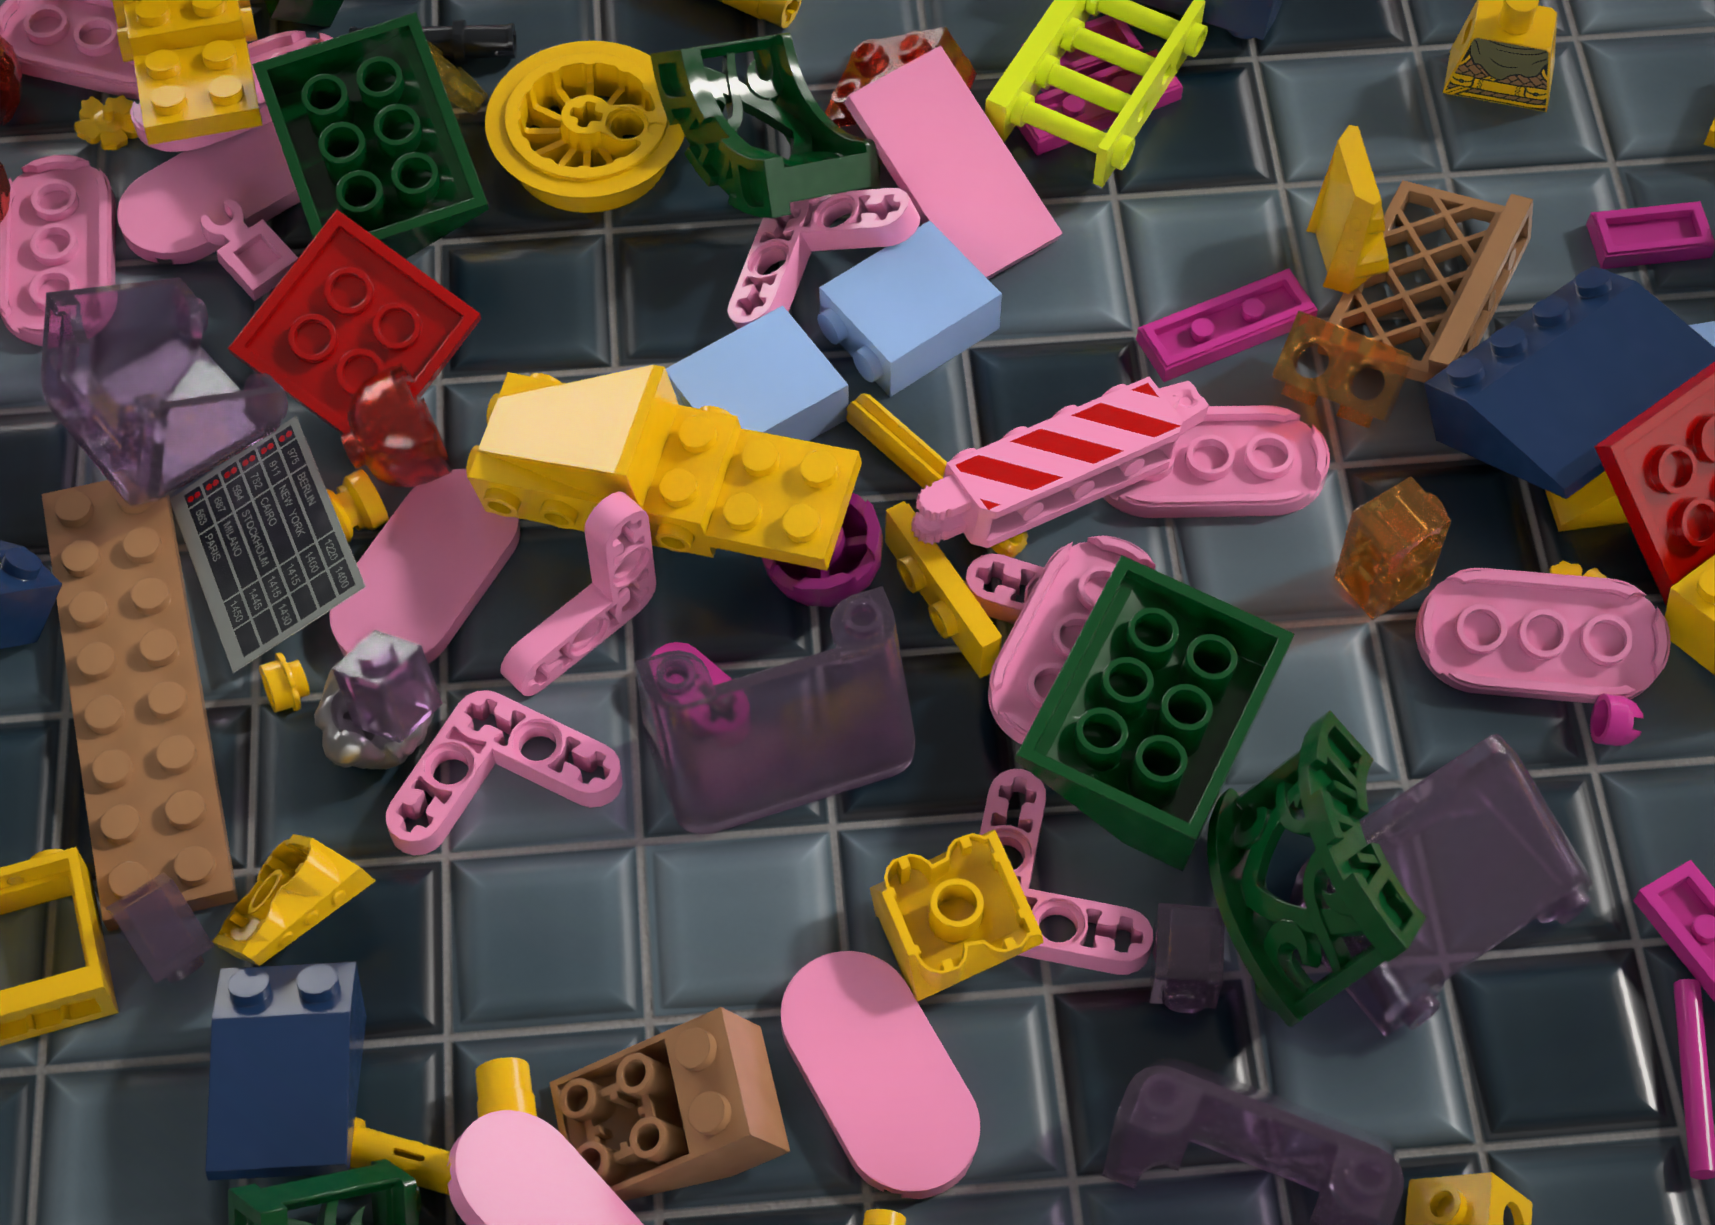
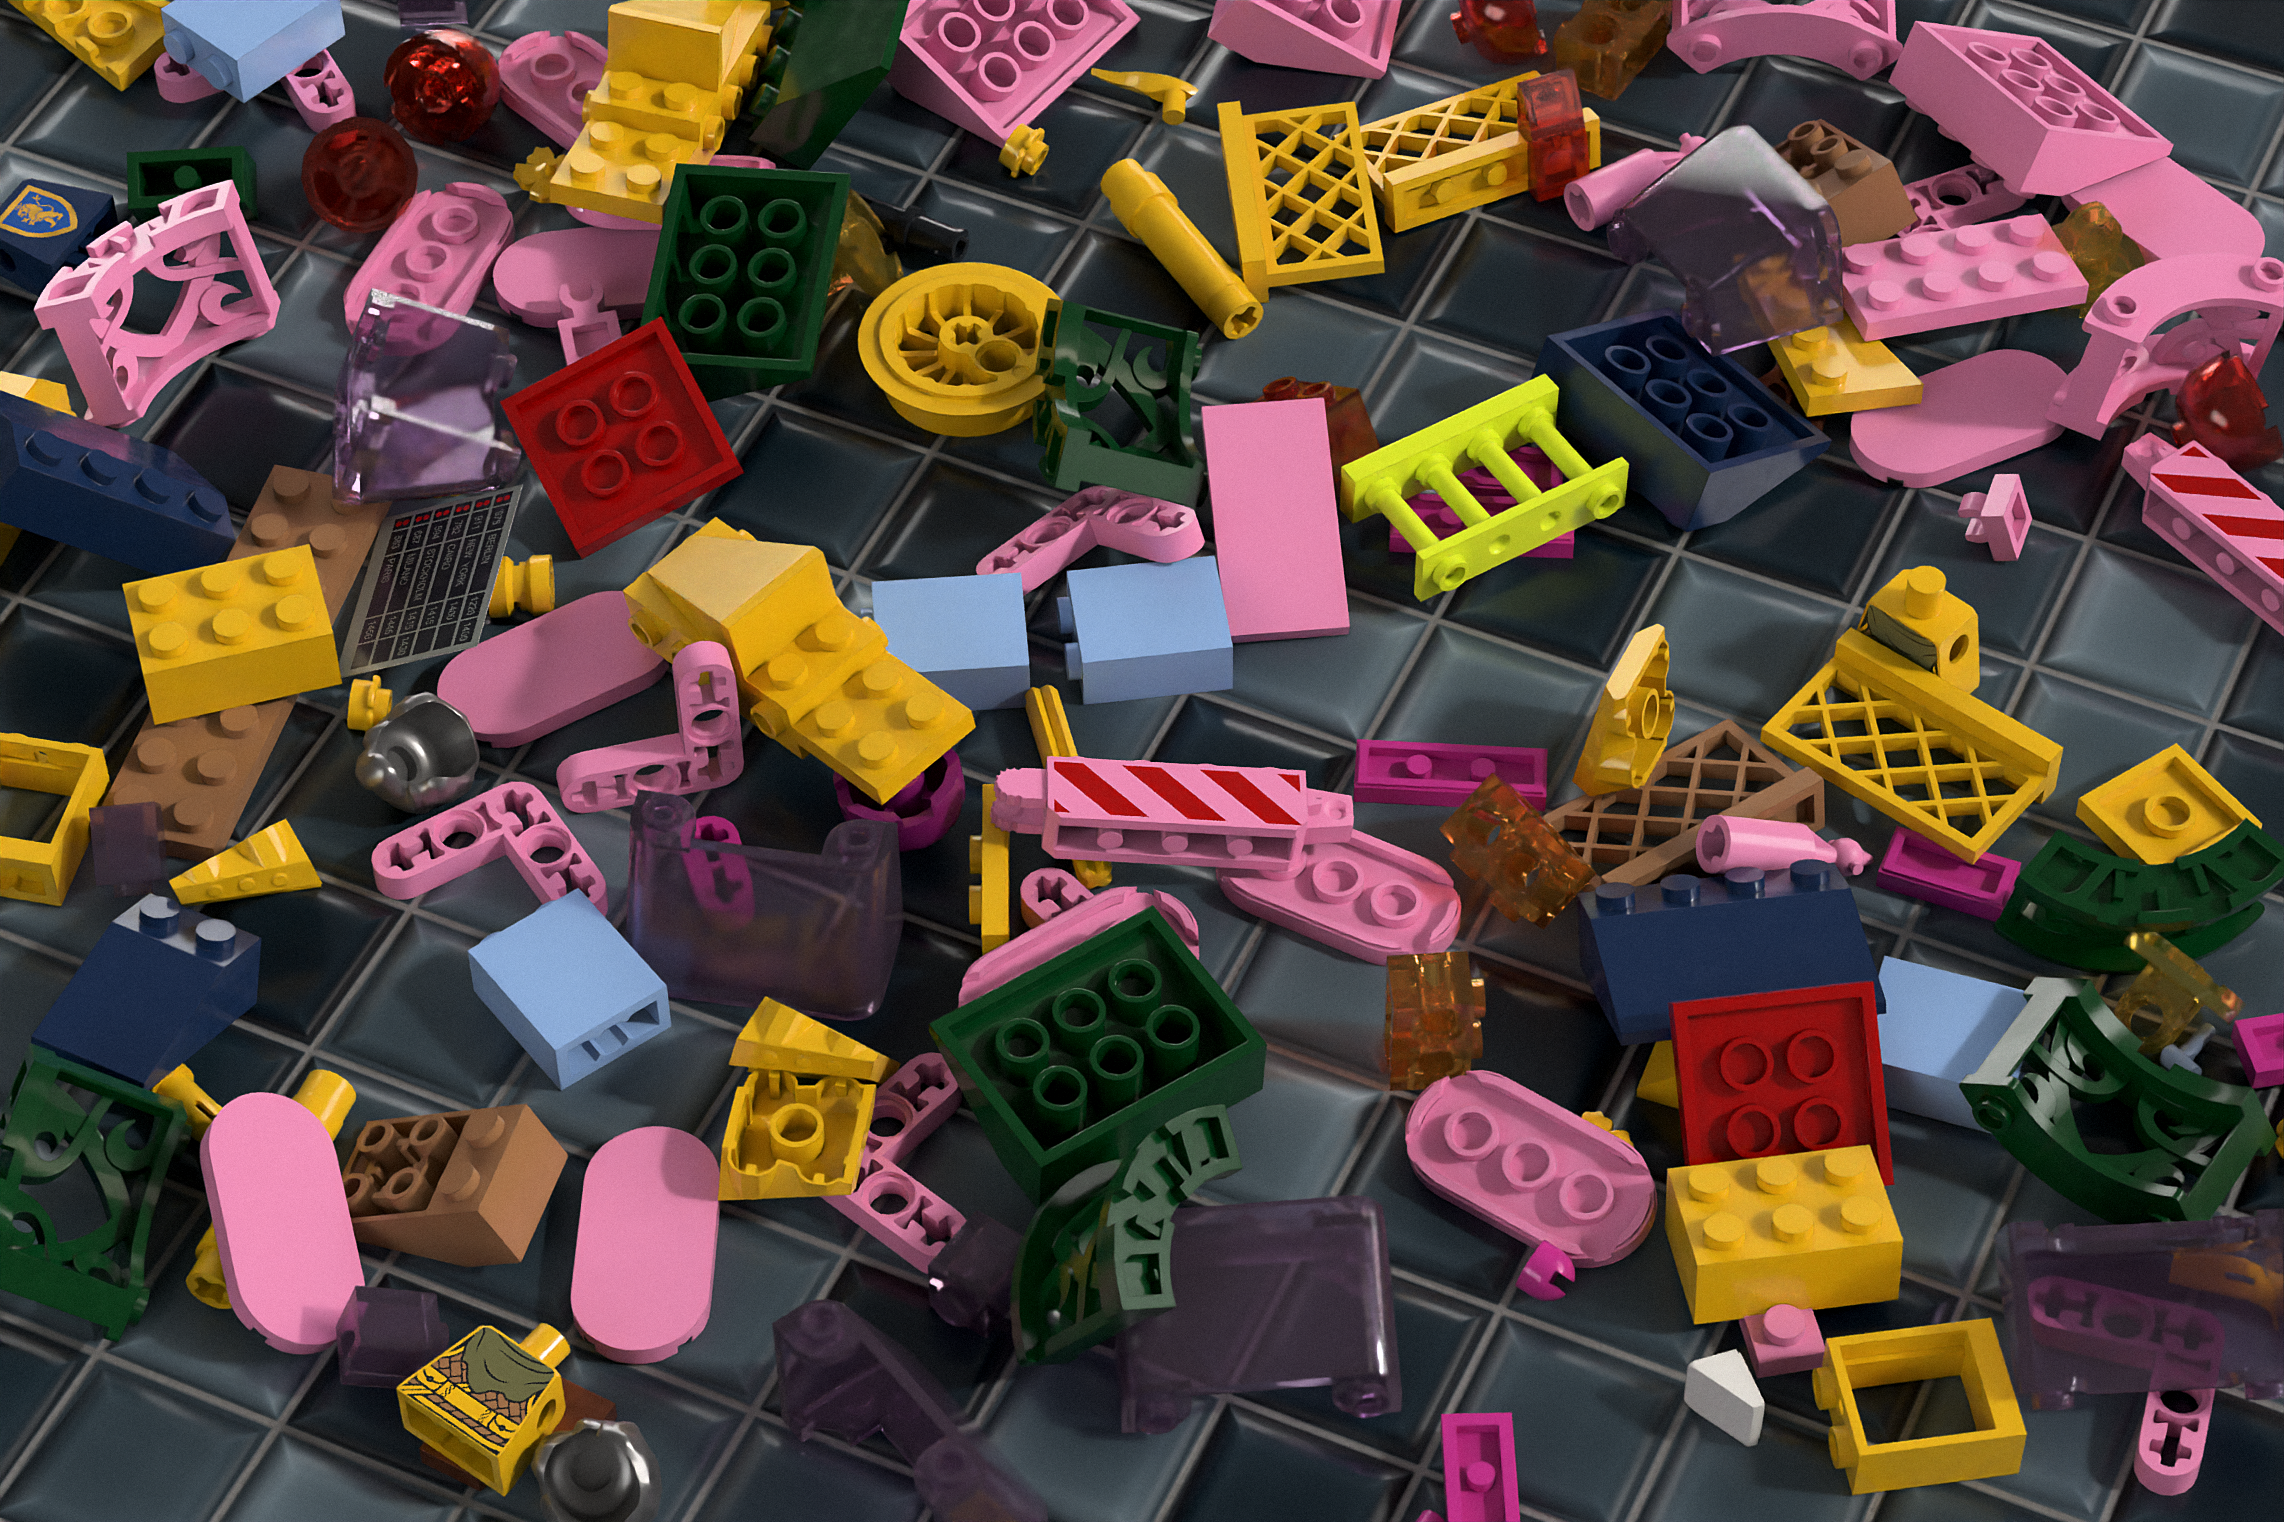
camera: 30 degrees right, 10 degrees down
(127, 678) = (232, 634): none -> yellow brick
(387, 686) = (434, 729): clear purple brick -> none
(394, 432) = (595, 531): clear red cylinder -> none
(650, 866) = (569, 988): none -> light blue brick
(898, 825) = (796, 1043): none -> yellow slope
(1532, 277) = (1771, 845): none -> bright pink wheel
(1562, 110) = (1939, 718): none -> yellow fence

